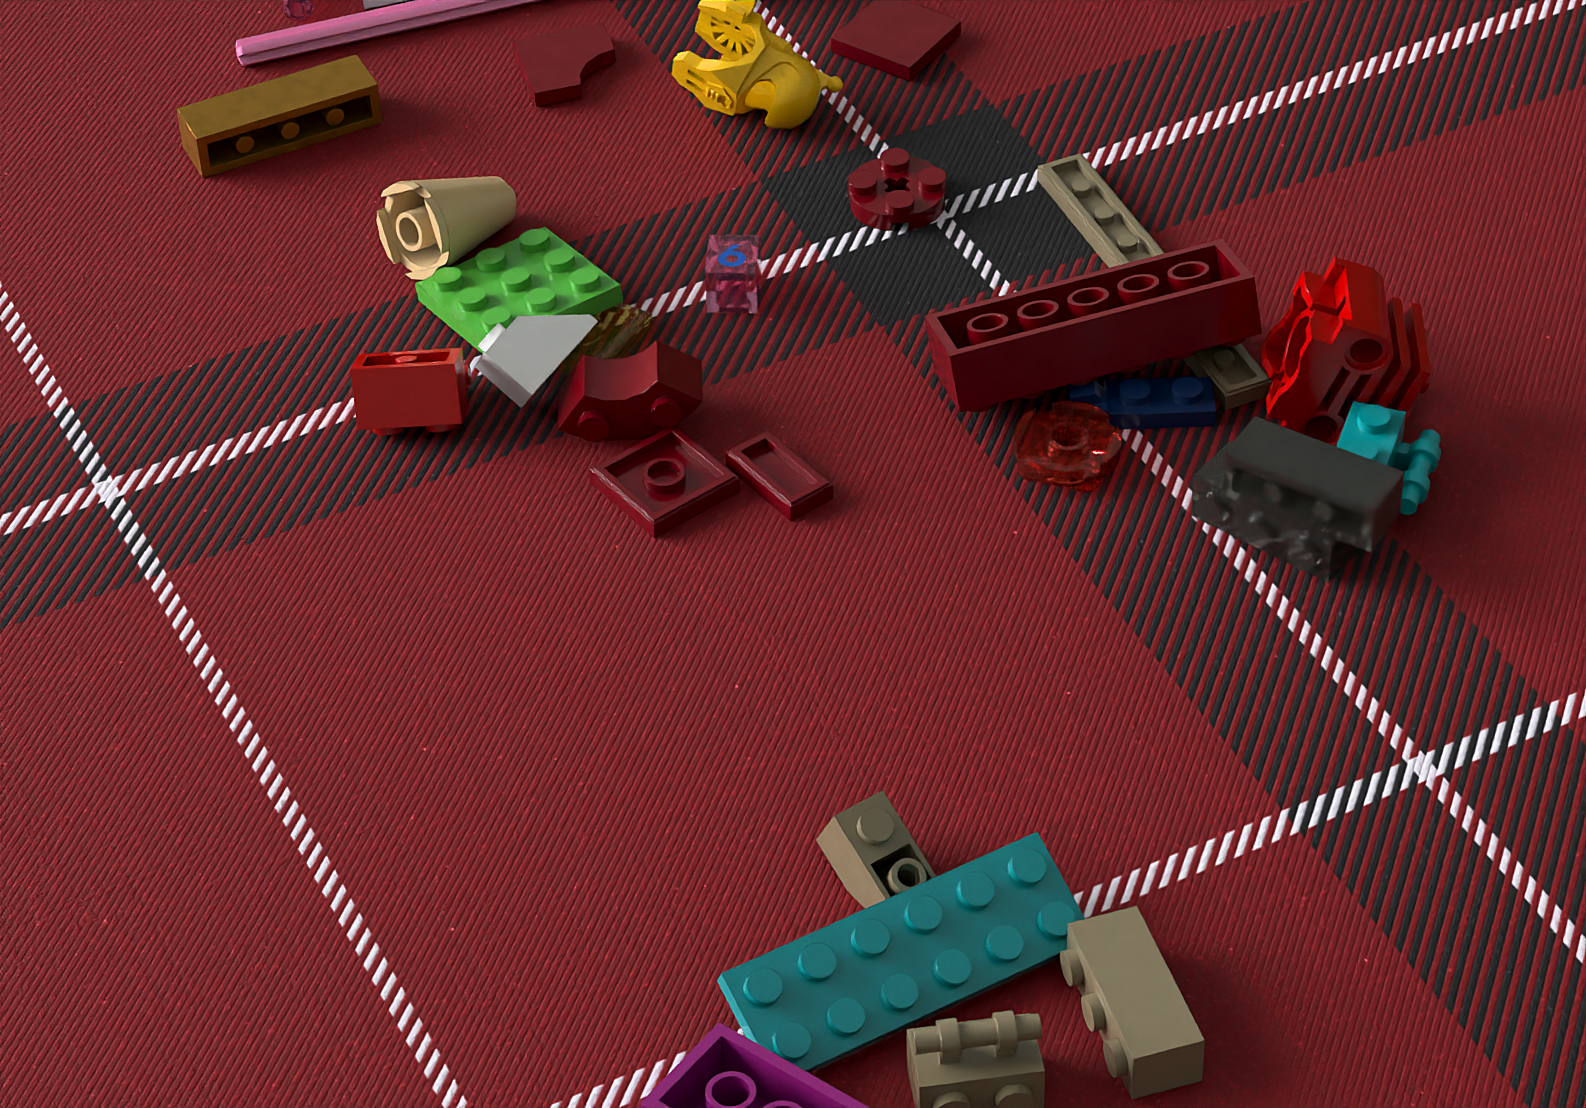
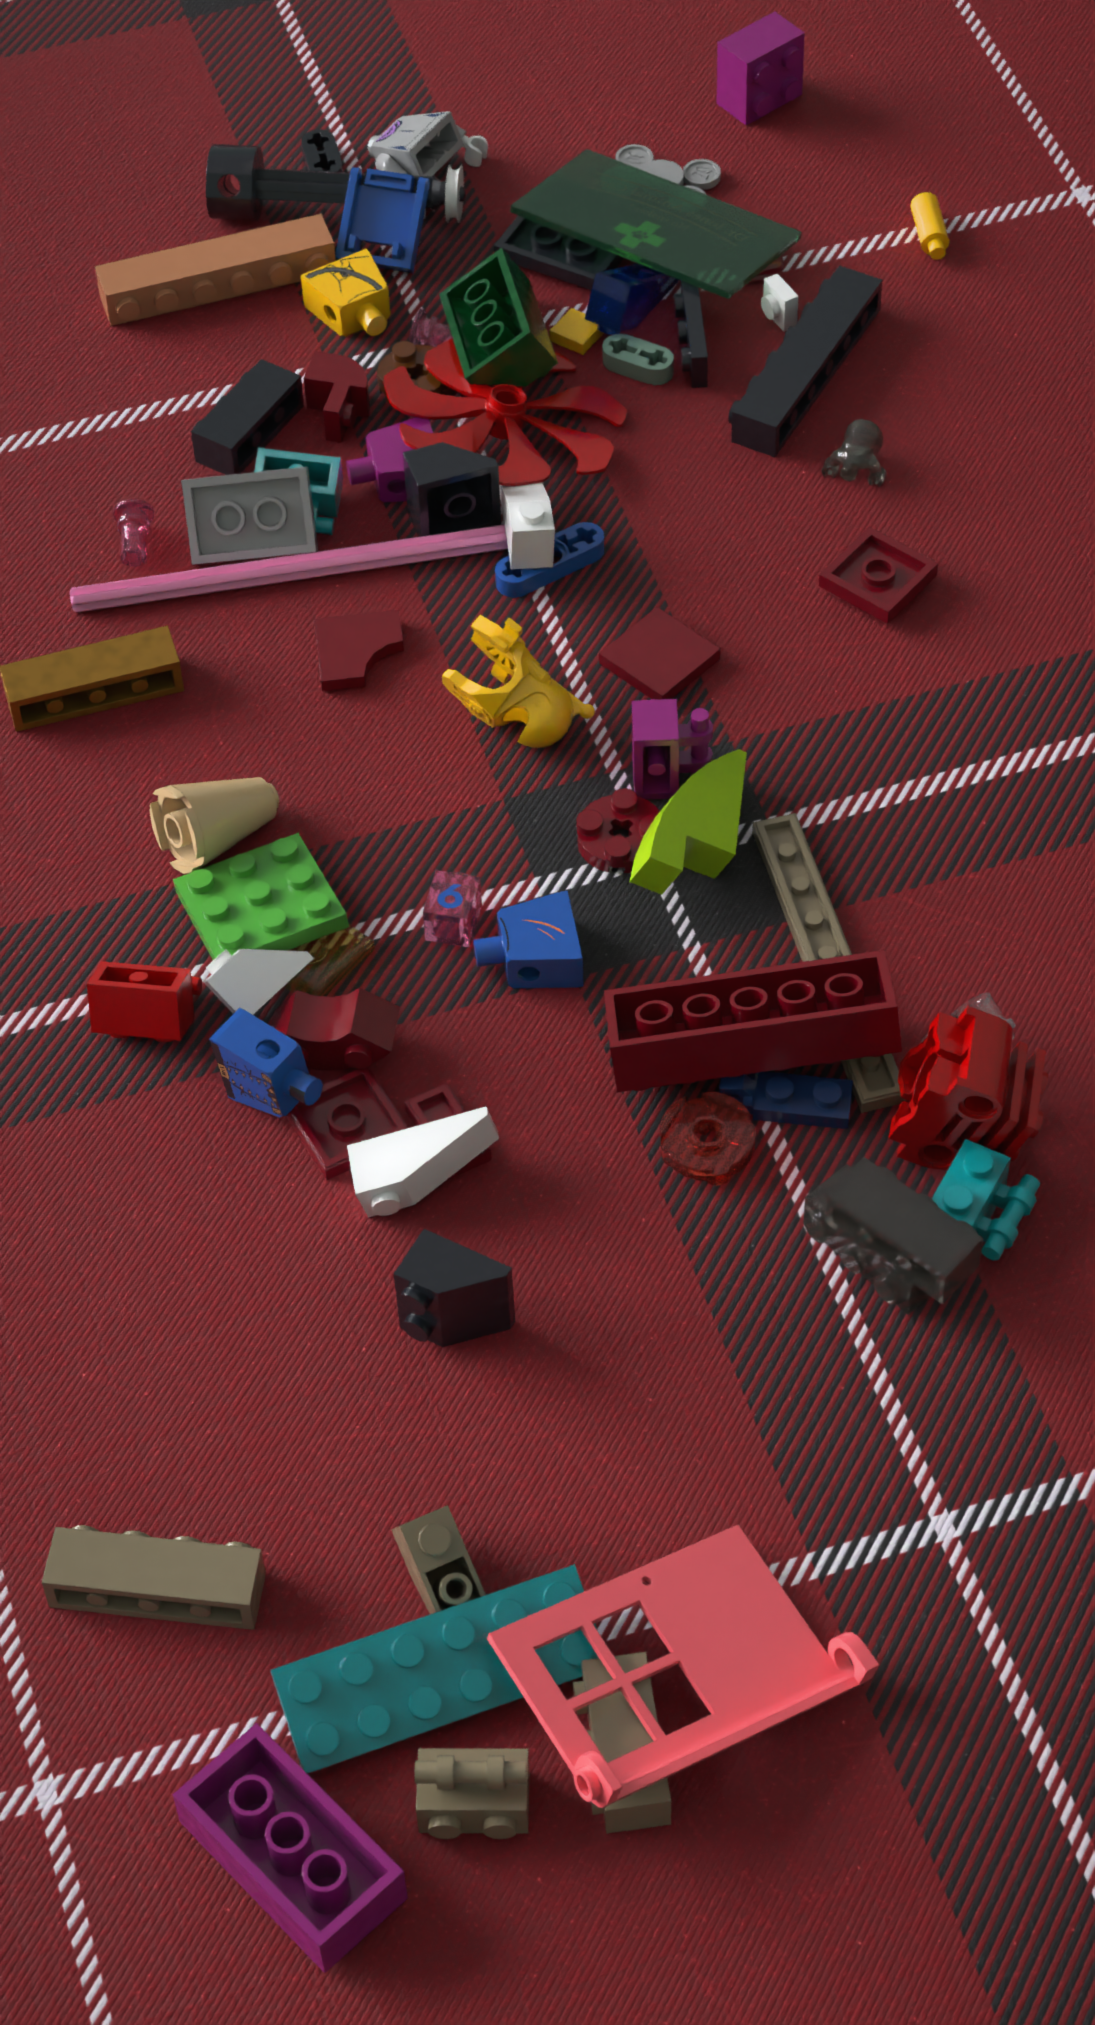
camera: 10 degrees right, 10 degrees up
(557, 919) = (154, 1577): none -> dark tan brick
(564, 427) = (262, 1066): none -> blue torso
(754, 497) = (412, 1162): none -> white slope
(832, 605) = (452, 1292): none -> black slope
(834, 295) = (535, 944): none -> blue torso
(921, 101) = (657, 744): none -> magenta brick
(979, 170) = (694, 827): none -> lime slope
(1209, 875) = (724, 1629): none -> coral door

